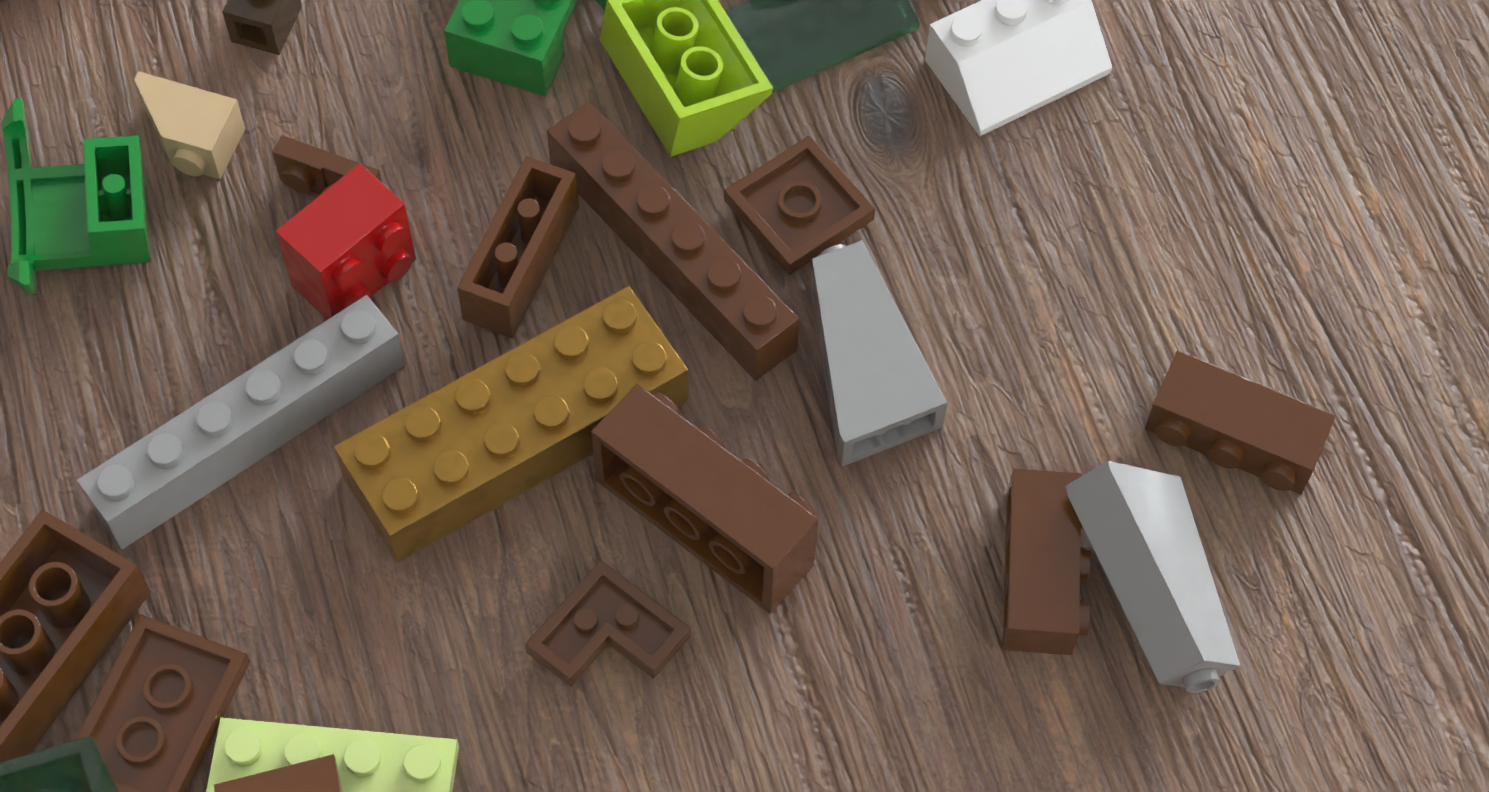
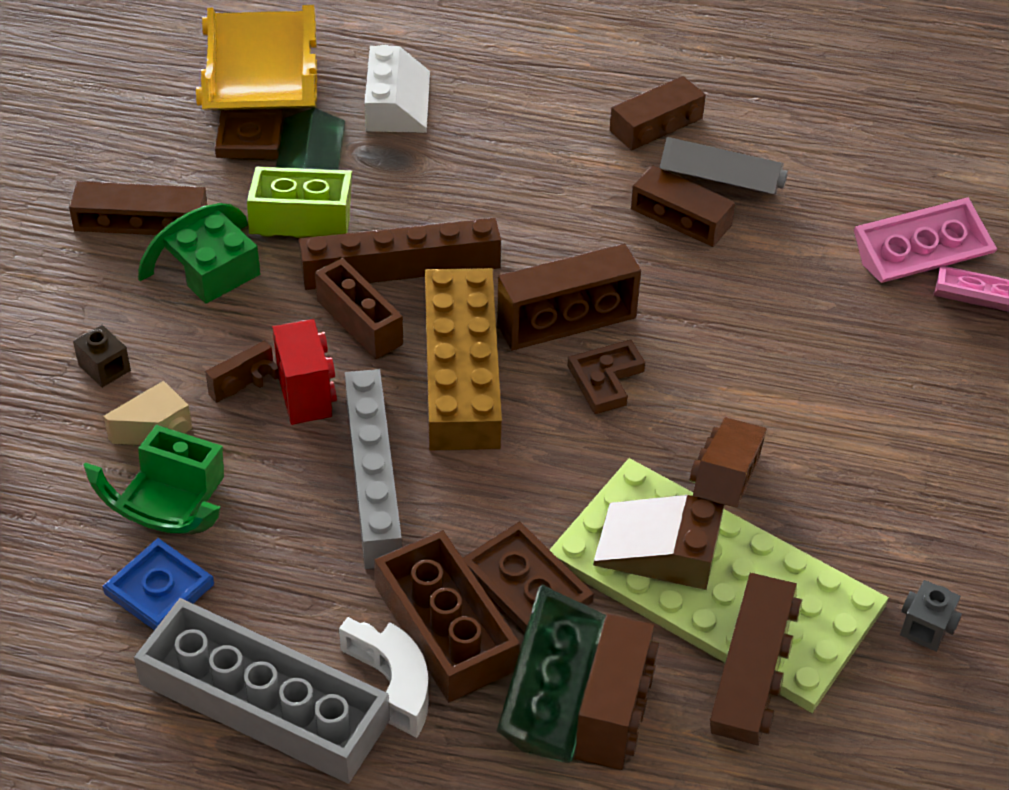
camera: 60 degrees left, 15 degrees down
(799, 204) = (416, 201): reddish brown plate -> none
(870, 362) = (525, 214): light grey slope -> none

